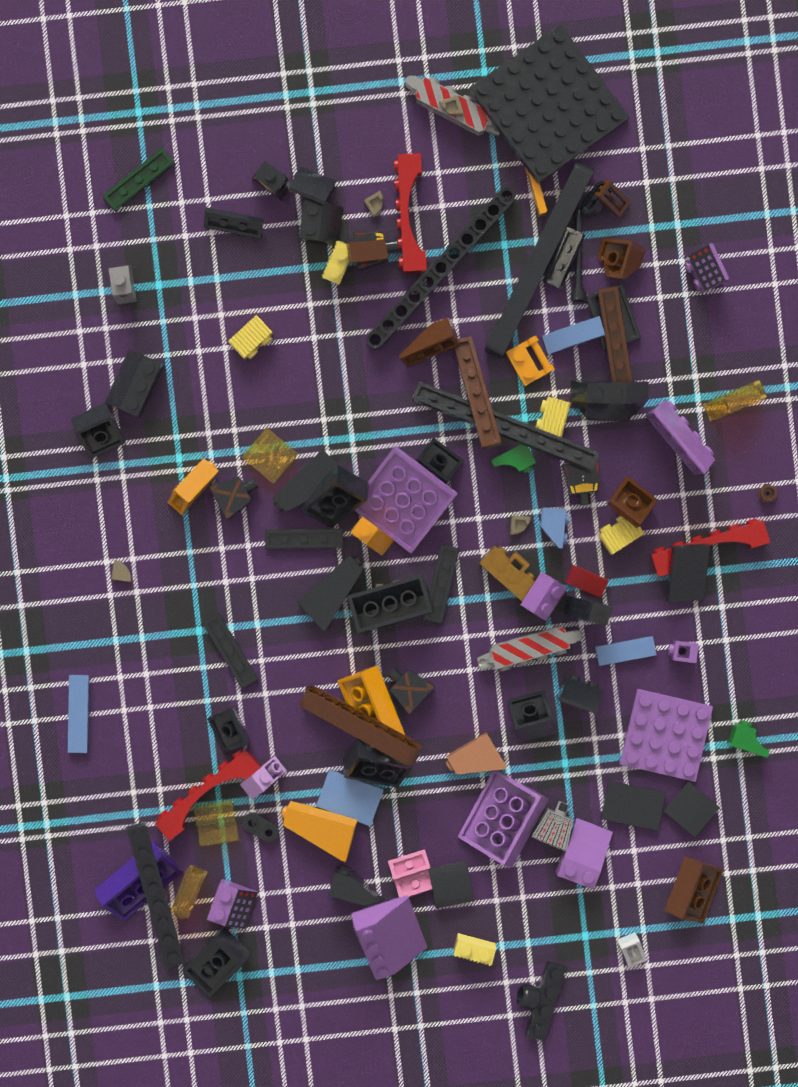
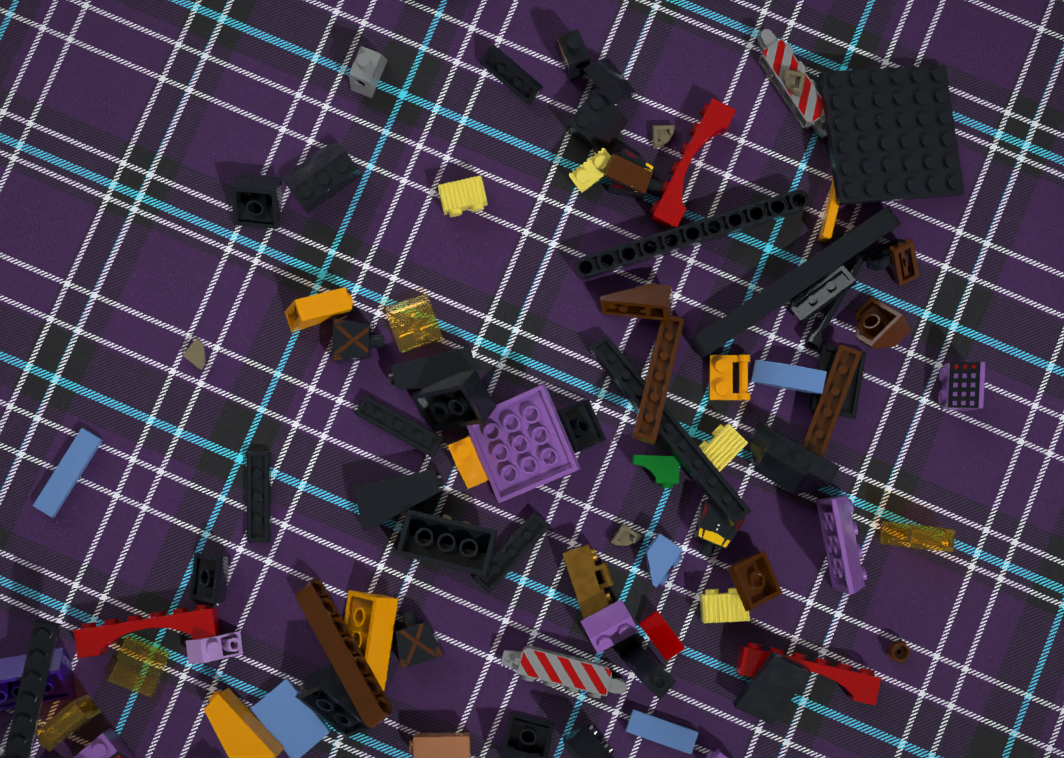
camera: 25 degrees right, 5 degrees down
(261, 826) = (184, 696): black plate -> none

